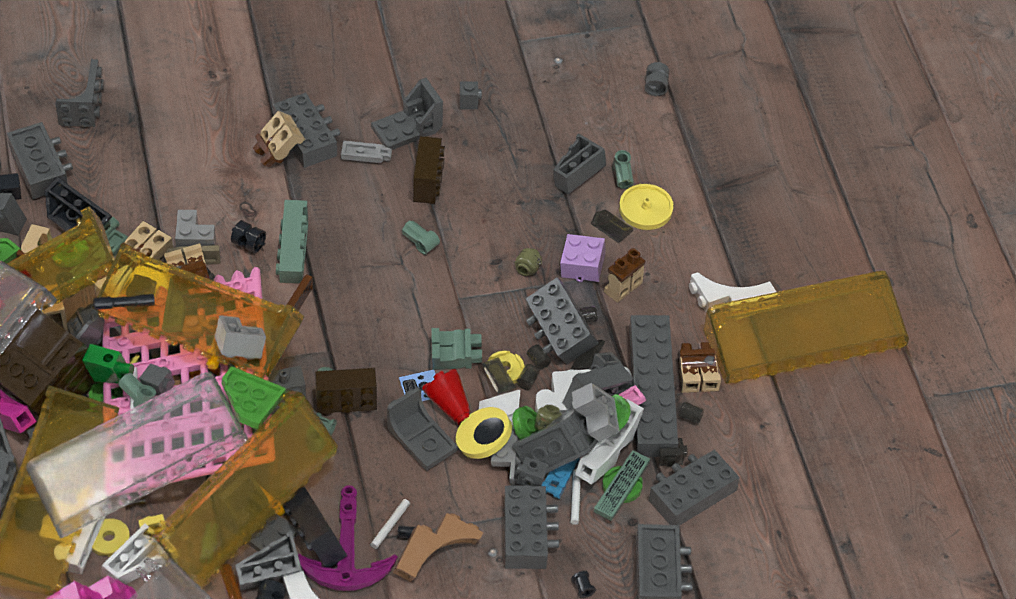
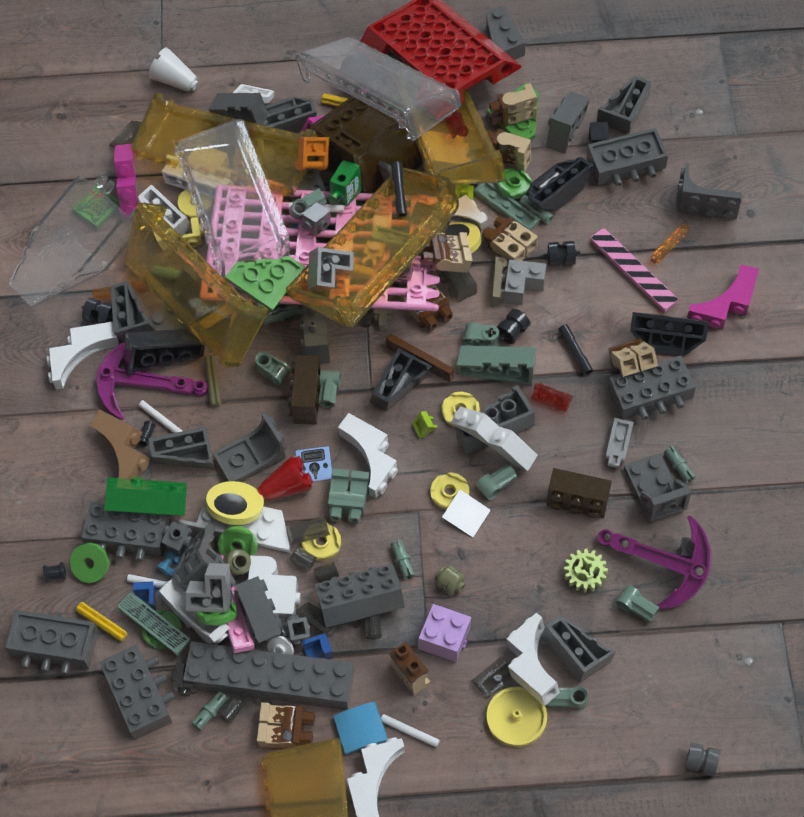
camera: 105 degrees right, 10 degrees up
(74, 387) = (312, 147): none -> orange plate
(85, 296) = (465, 189): none -> lime tile
(136, 128) = (669, 243): none -> clear orange axle
(158, 205) = (561, 253): none -> black wheel
(168, 154) = (634, 270): none -> bright pink tile
(201, 77) = (735, 299): none -> dark pink arch
(243, 115) = (669, 333): none -> black wedge
(261, 259) = (480, 335): none -> sand green piece
(277, 186) = (581, 359): none -> black piece
(322, 203) = (551, 397): none -> clear red hinge
(324, 320) = (399, 379): none -> black wedge
(338, 484) = (212, 380): none -> olive axle
(345, 283) = (456, 400): none -> light yellow tile
(358, 238) = (509, 412): none -> dark grey wedge
(368, 298) = (423, 424): none -> lime tile
(380, 109) = (679, 464): none -> sand green pin
(380, 231) = (498, 438): none -> white arch
(397, 336) = (372, 445): none -> white arch
(427, 488) = (183, 448): none -> dark grey wedge
(434, 283) = (445, 481): none -> light yellow tile
(456, 258) = (466, 513): none -> white sticker
(487, 94) = (701, 559): none -> magenta piece
(494, 503) = (145, 496): none -> green brick
(498, 165) = (581, 577): none -> yellowish green gear
(512, 301) = (402, 559): none -> sand green pin
(523, 132) = (632, 601): none -> sand green piece
(577, 546) = (80, 568): none -> bright green tile
(589, 498) = (146, 592): none -> blue panel
(604, 193) = (526, 667): none -> white arch
(617, 346) = (318, 647): none -> blue panel
(626, 536) = (101, 621): none -> yellow axle
(677, 279) = (410, 730): none -> white bar
(685, 313) = (360, 727): none -> dark azure slope
(696, 430) = (209, 710): none -> sand green pin

